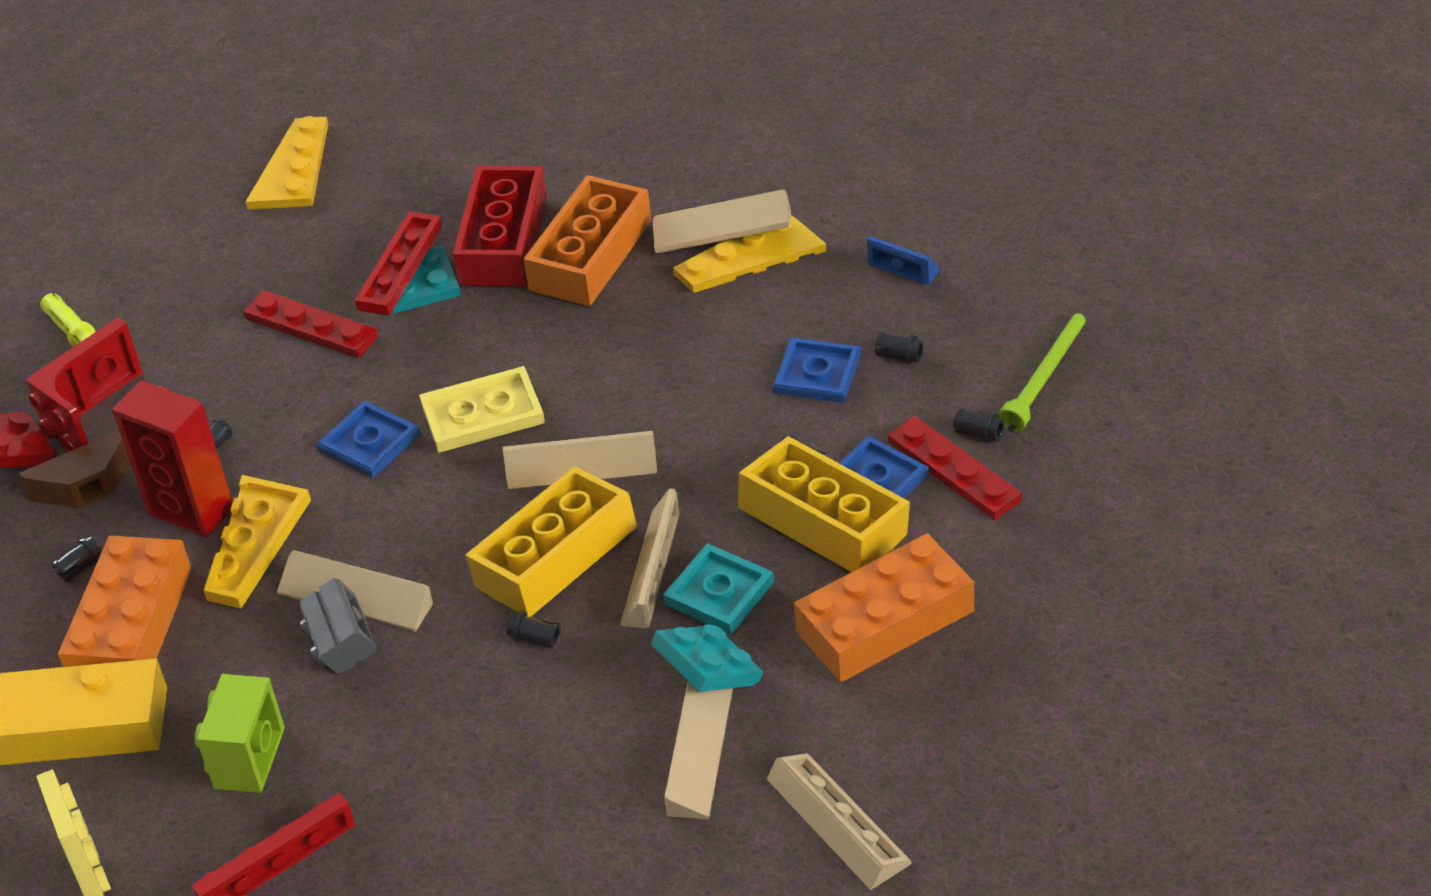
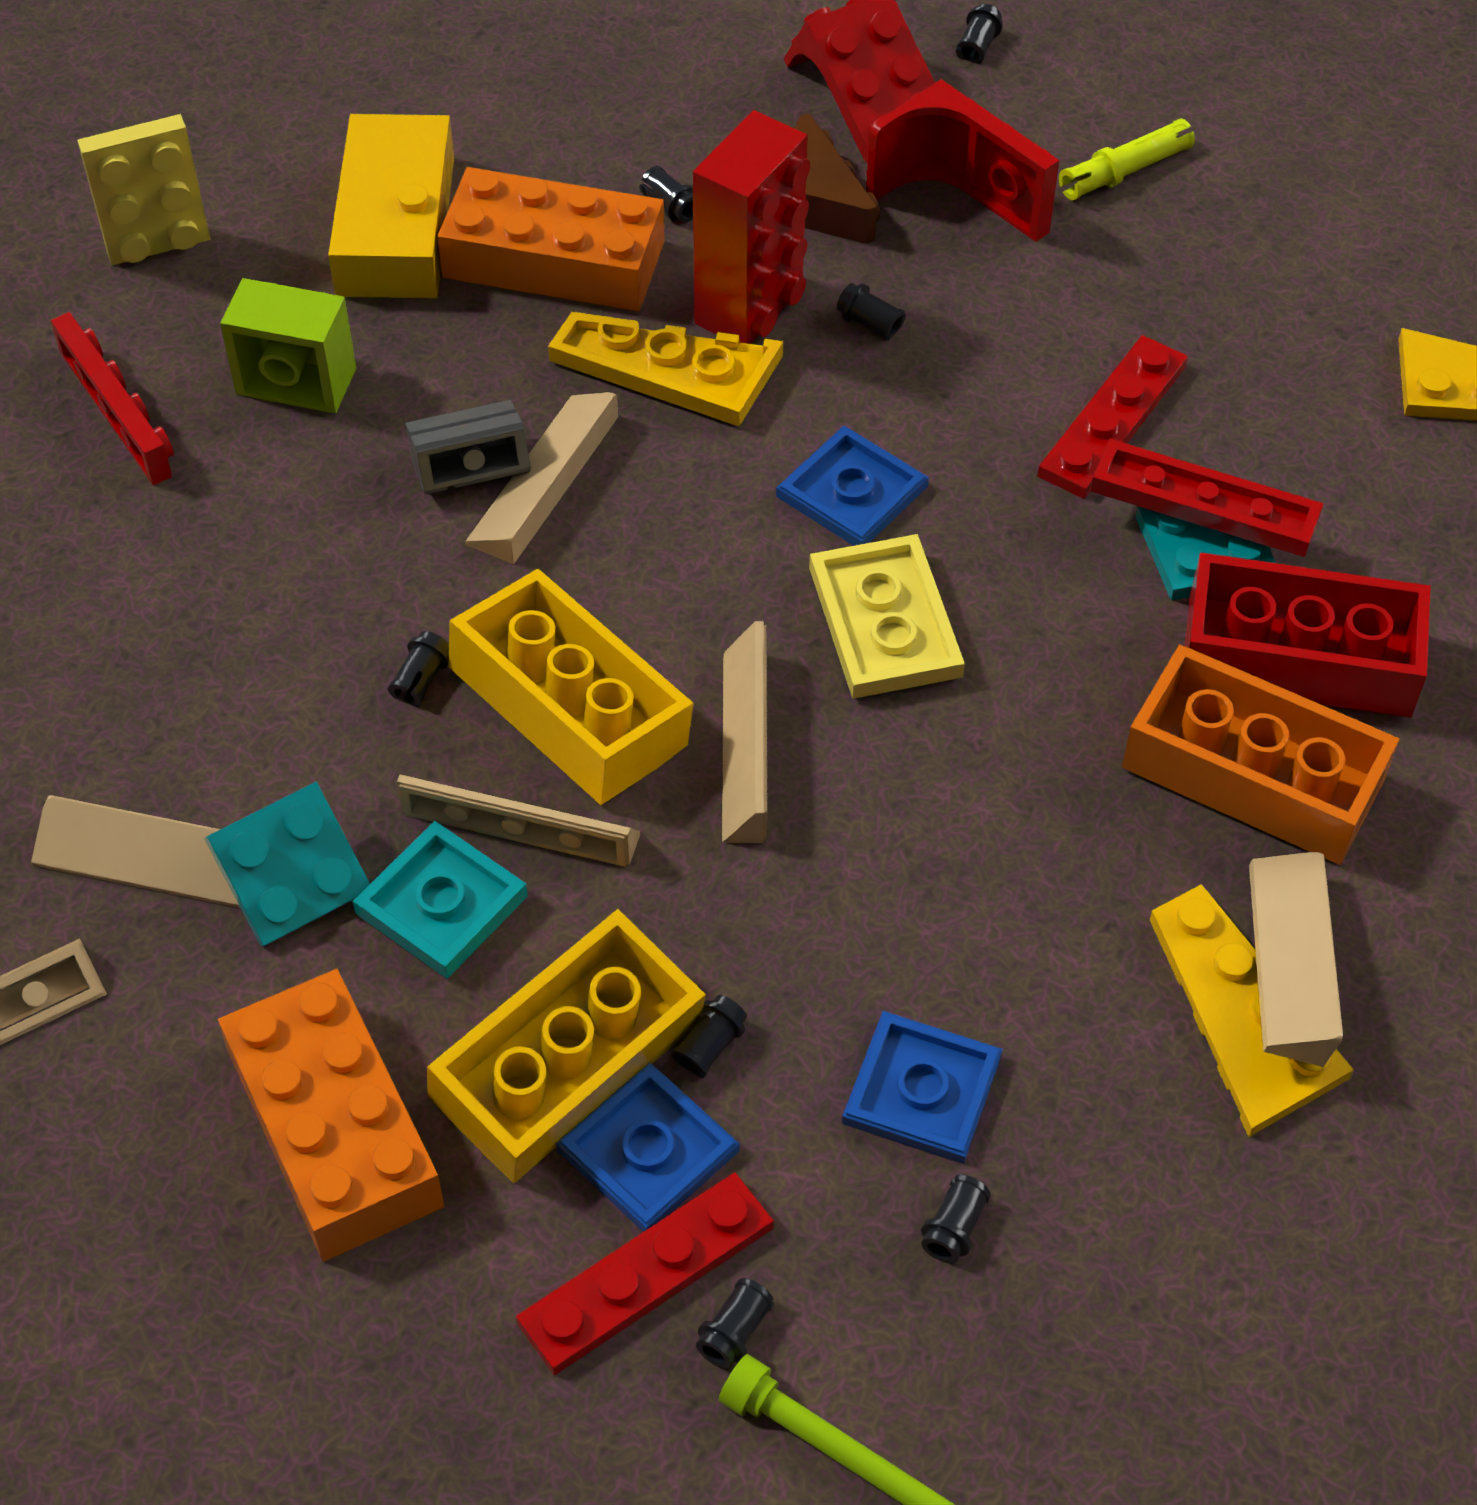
camera: 90 degrees right, 10 degrees up
(901, 261) = (1195, 1254): blue slope -> none

